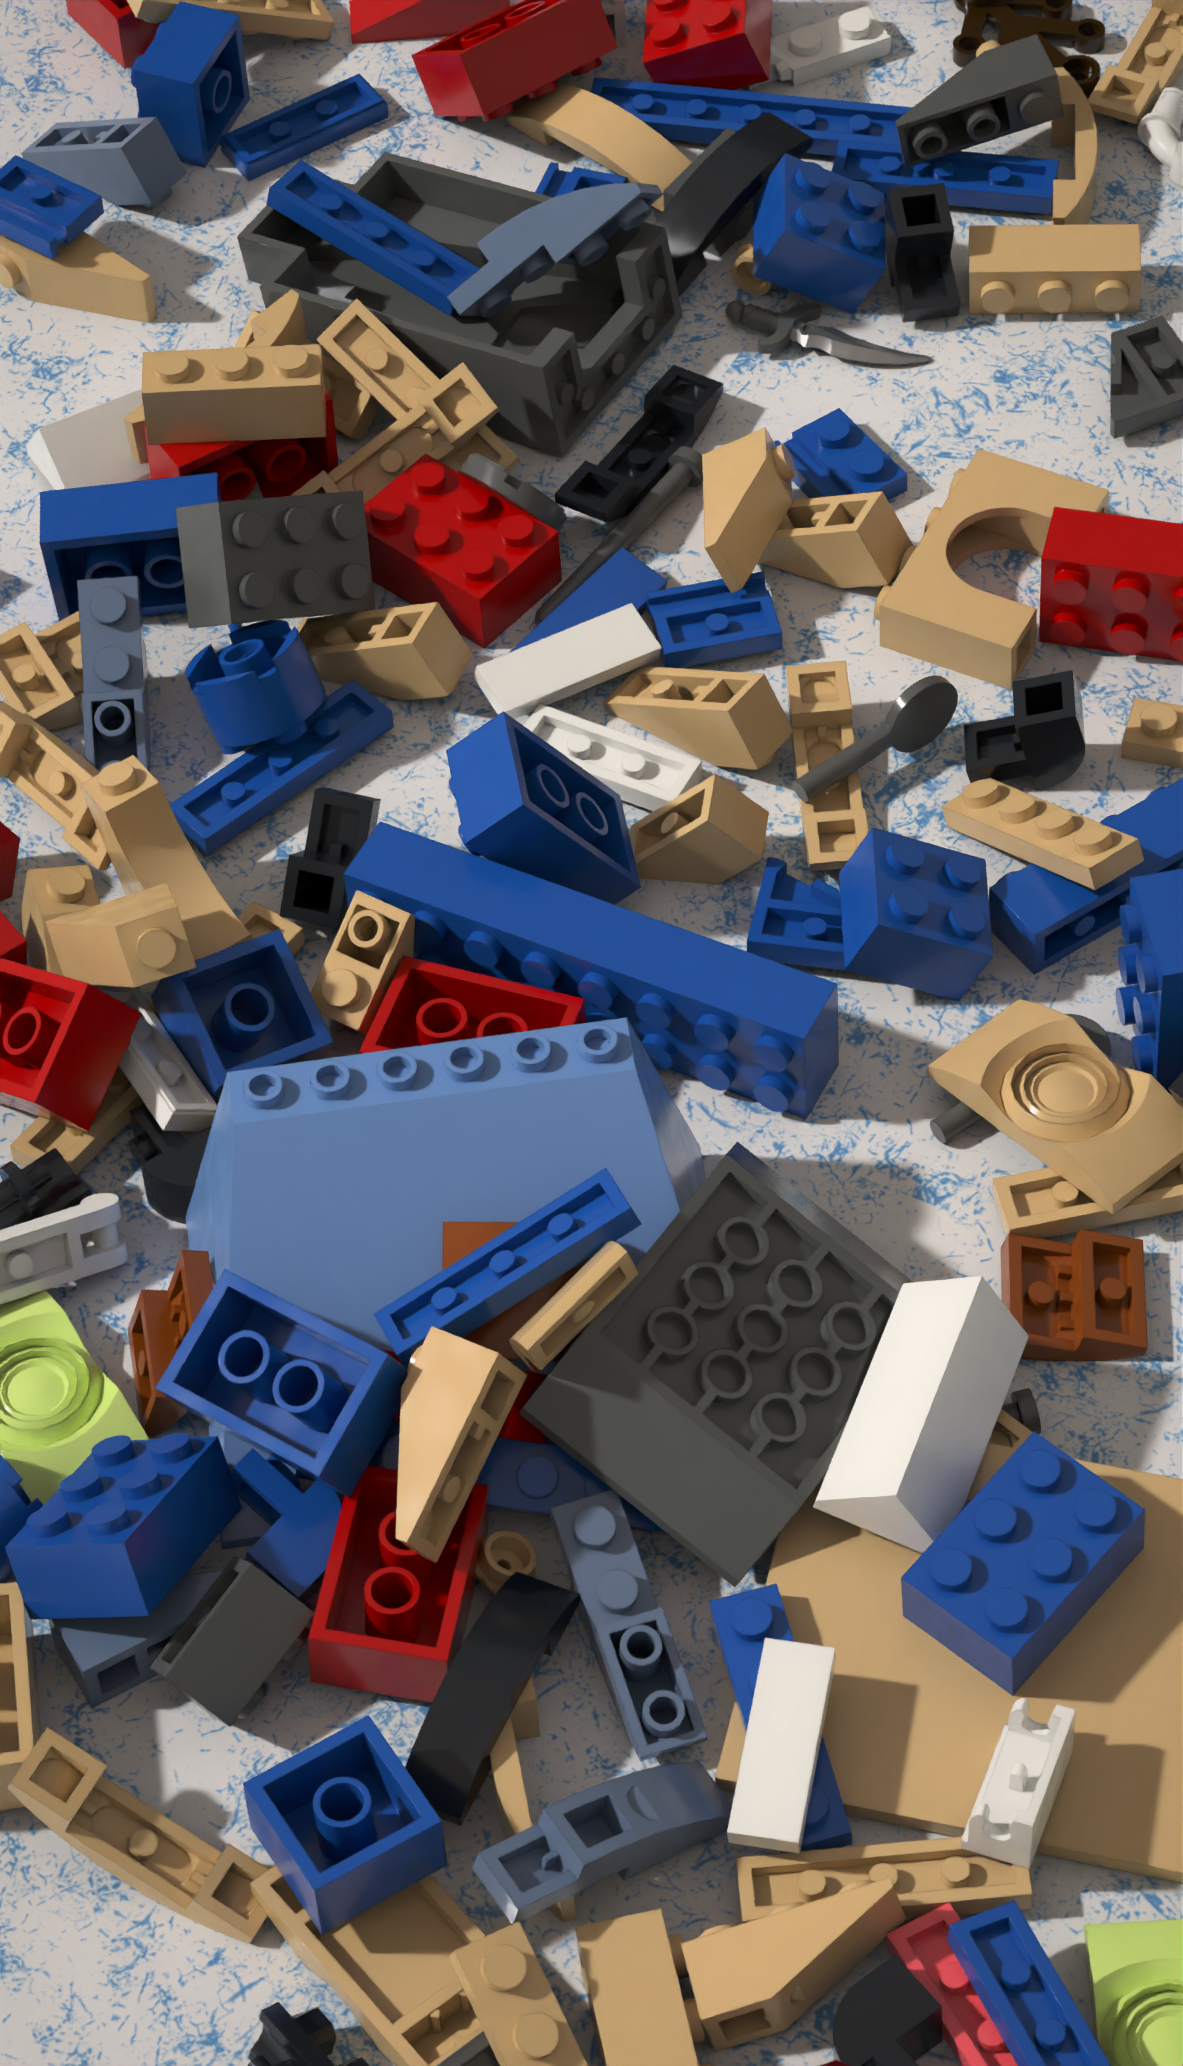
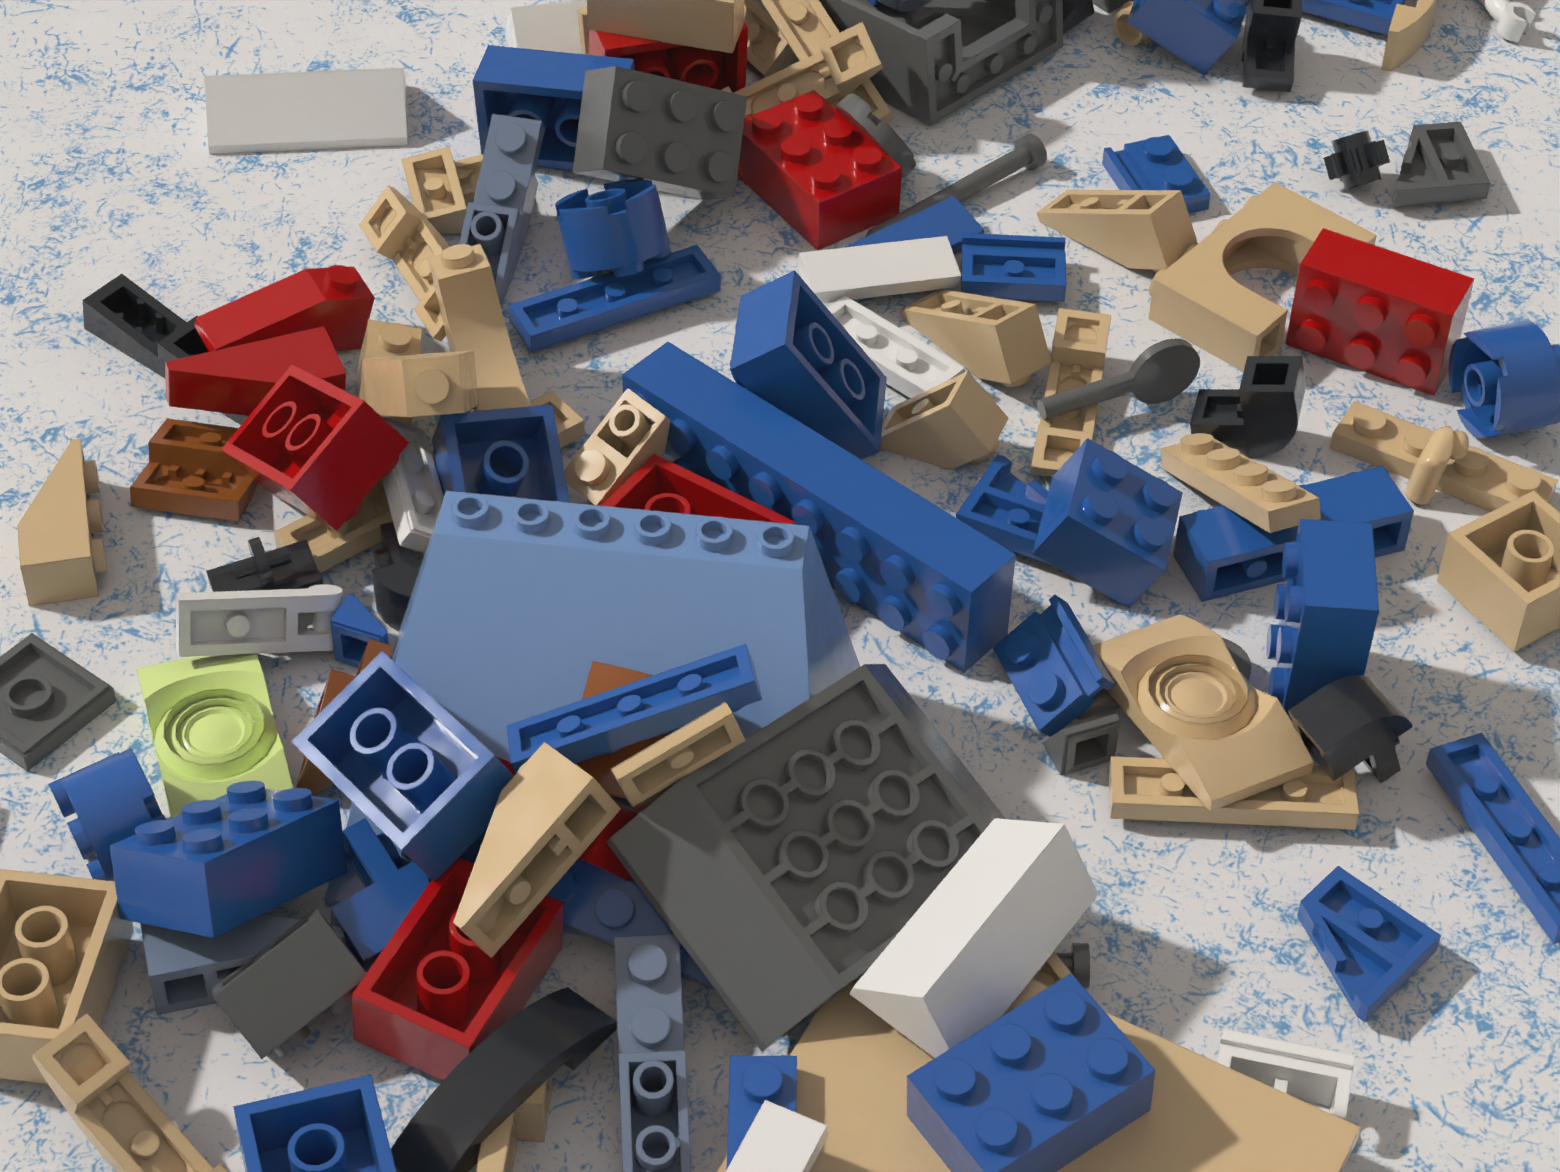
camera: 10 degrees right, 5 degrees down
(149, 1242) = (352, 629): none -> blue slope
(335, 835) = (601, 379): black brick -> none
(389, 651) = (735, 230): tan slope -> none
(504, 1550) = (568, 967): tan plate -> none
(672, 418) = (1031, 108): black slope -> none
(744, 502) = (1064, 181): tan slope -> none
(794, 326) = (1156, 72): piece -> none
(903, 1092) = (1053, 666): none -> blue plate
(959, 1172) = (1084, 744): none -> dark grey slope
(1054, 269) = (1379, 71): tan brick -> none
(1059, 393) = (1356, 159): none -> black gear
(1077, 1296) = (1157, 877): dark orange slope -> none

